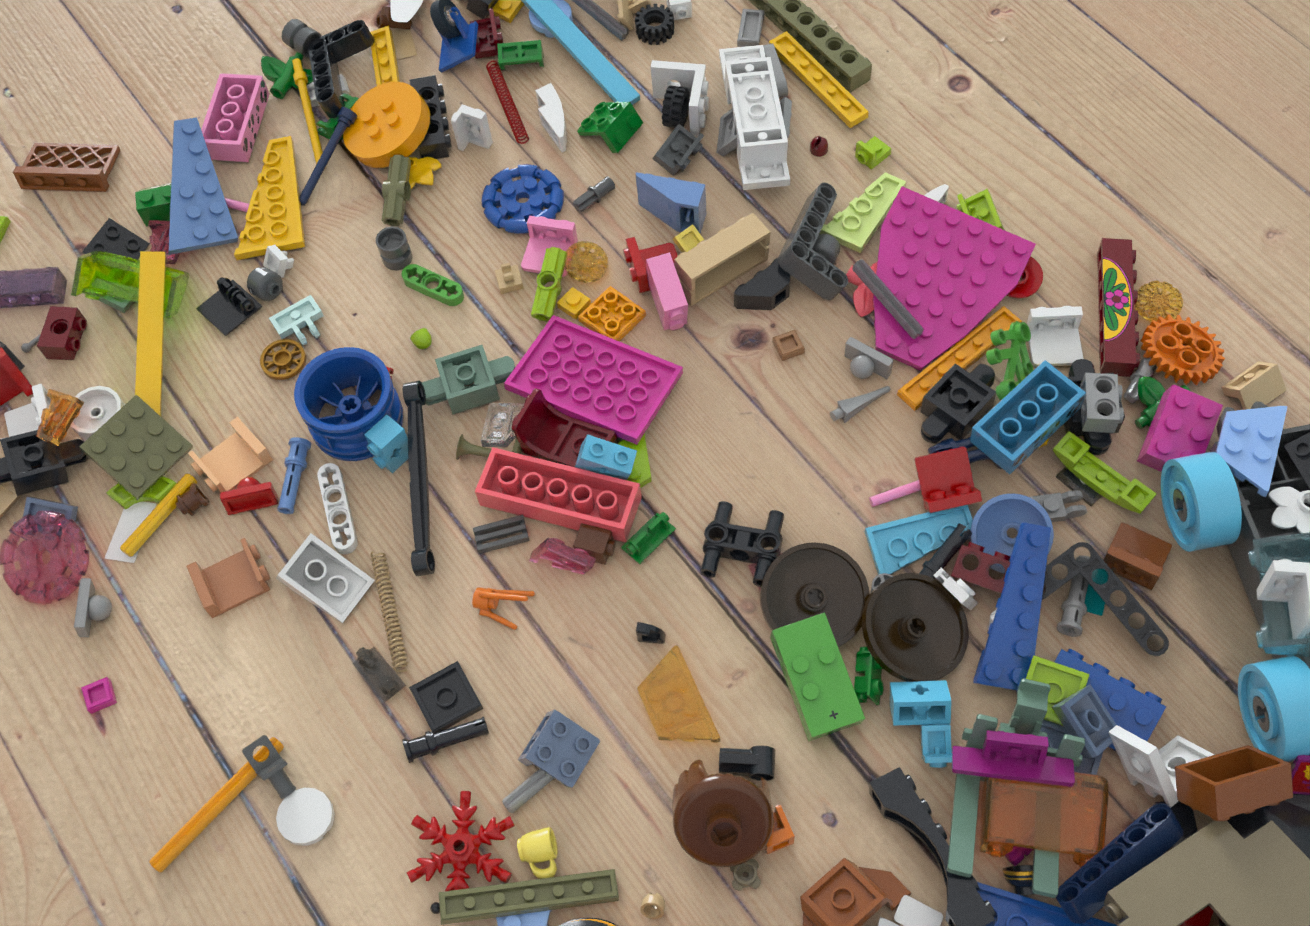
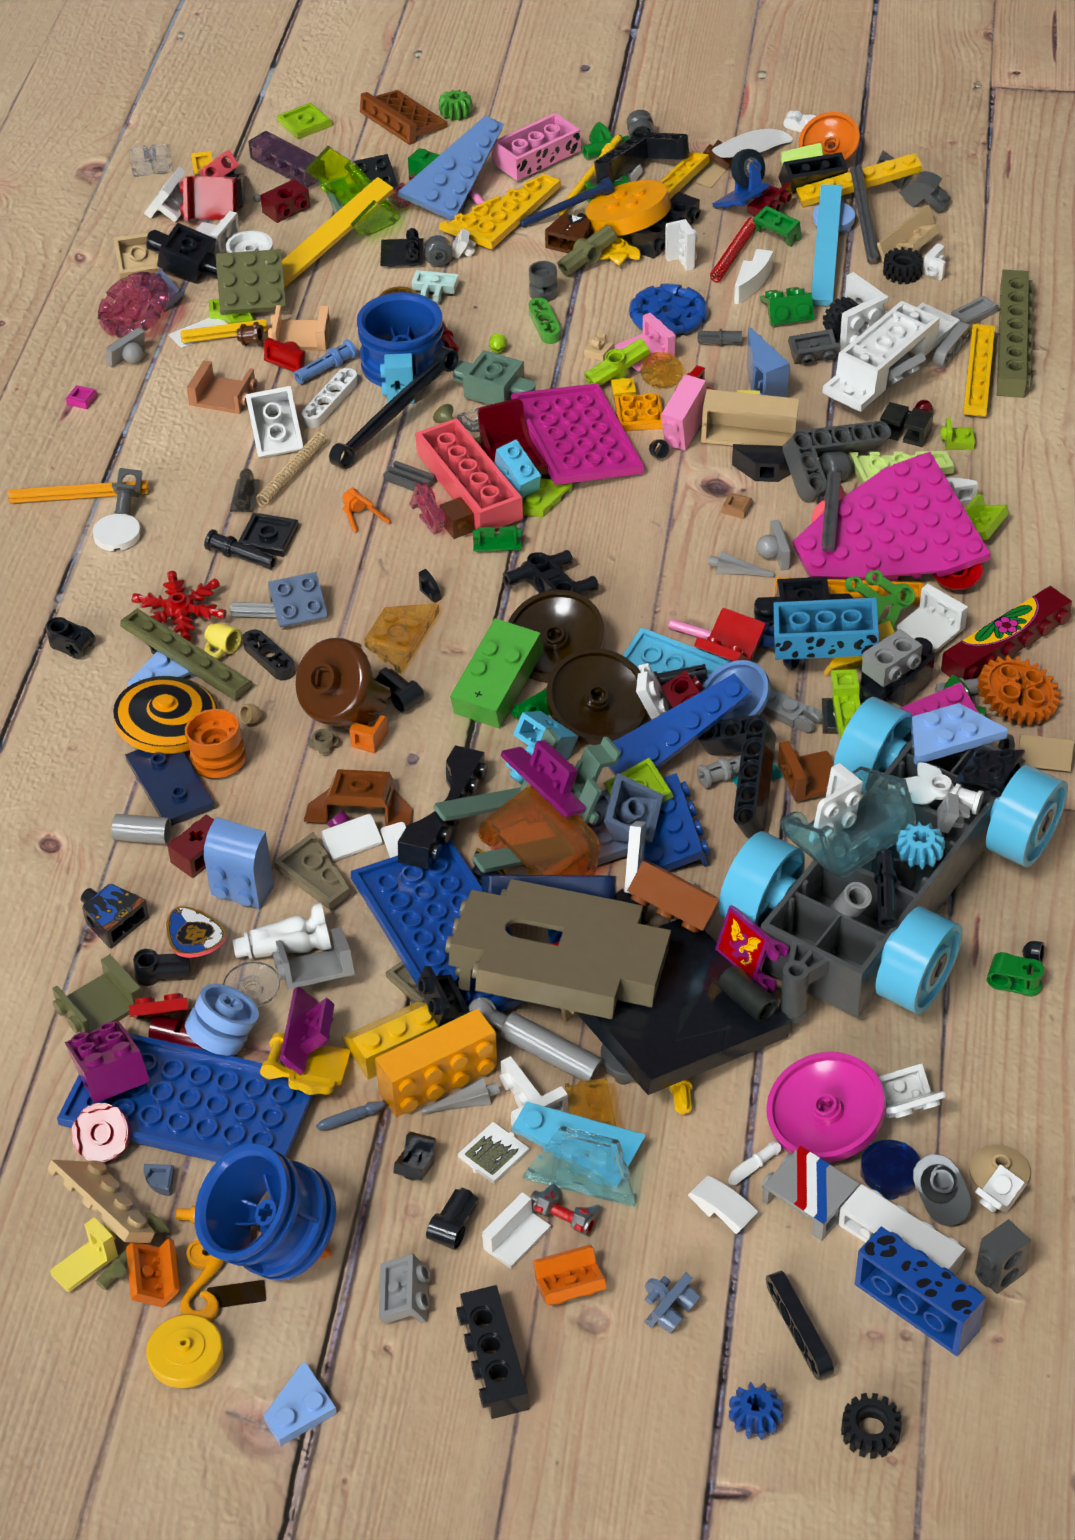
camera: 40 degrees right, 15 degrees down
(58, 417) = (220, 233): clear orange wing -> none
(108, 123) = (455, 104): none -> bright green gear
(359, 183) = (566, 231): none -> reddish brown torso
(572, 830) = (266, 645): none -> black beam
(672, 340) = (662, 449): none -> black hinge
(833, 164) = (916, 421): none -> pearl dark grey piece
(1158, 301) = (1047, 657): clear yellow wheel -> none

